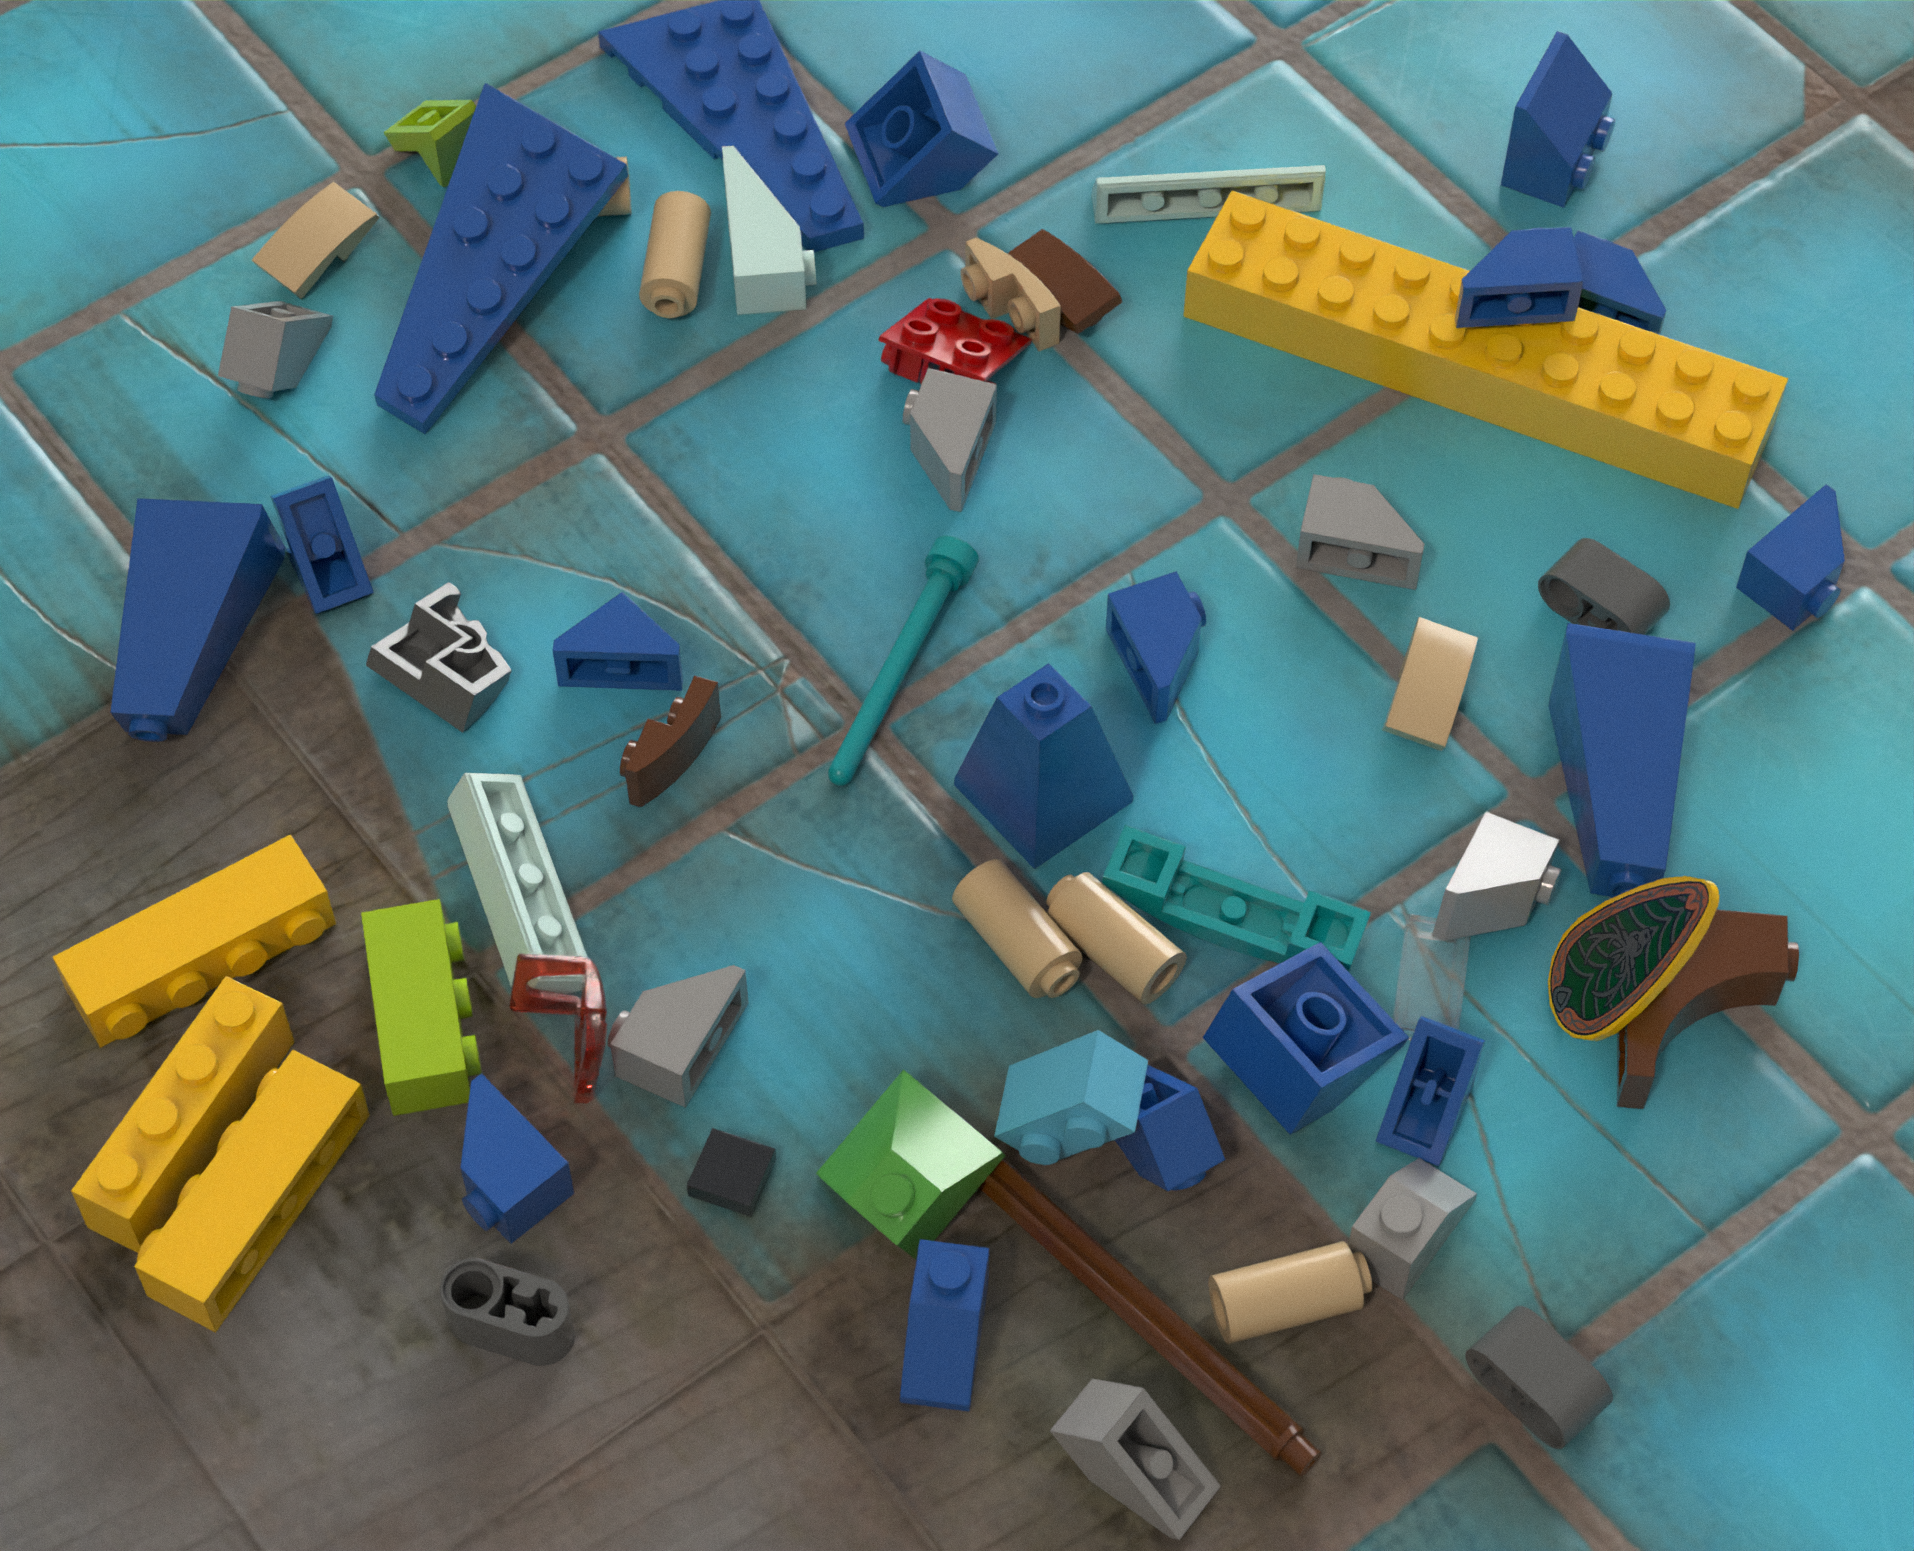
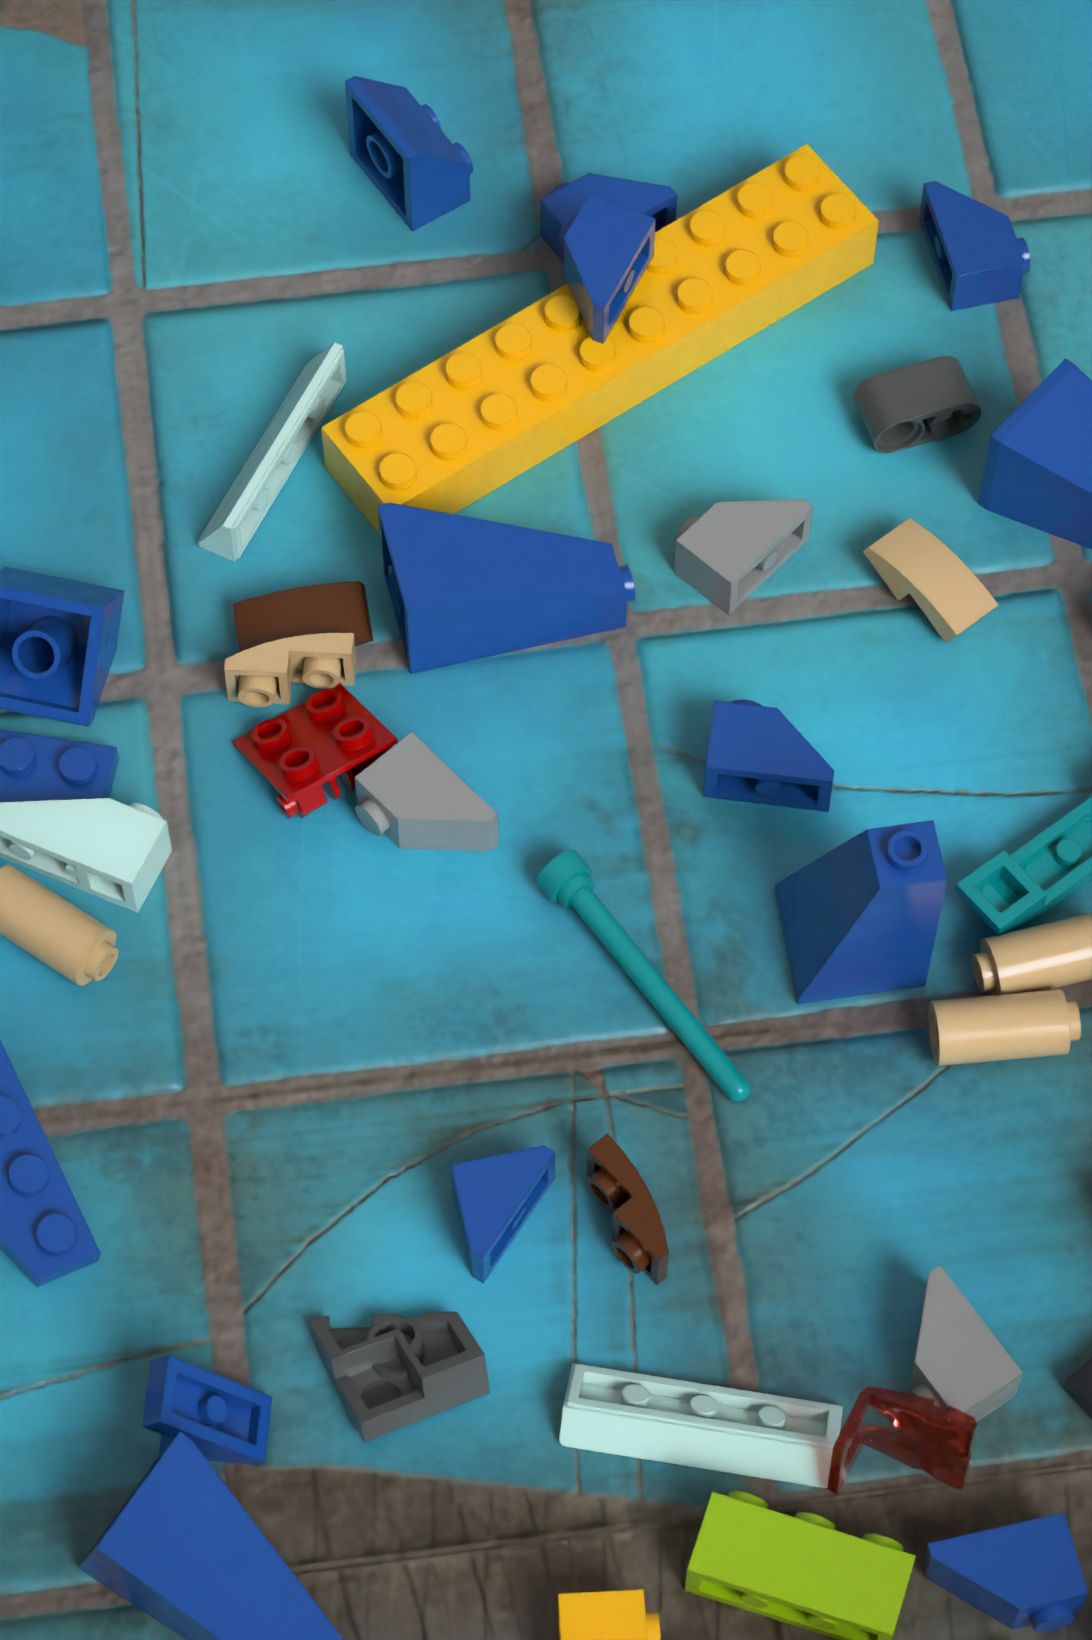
camera: 60 degrees left, 5 degrees up
(1169, 374) = (493, 587): none -> blue slope

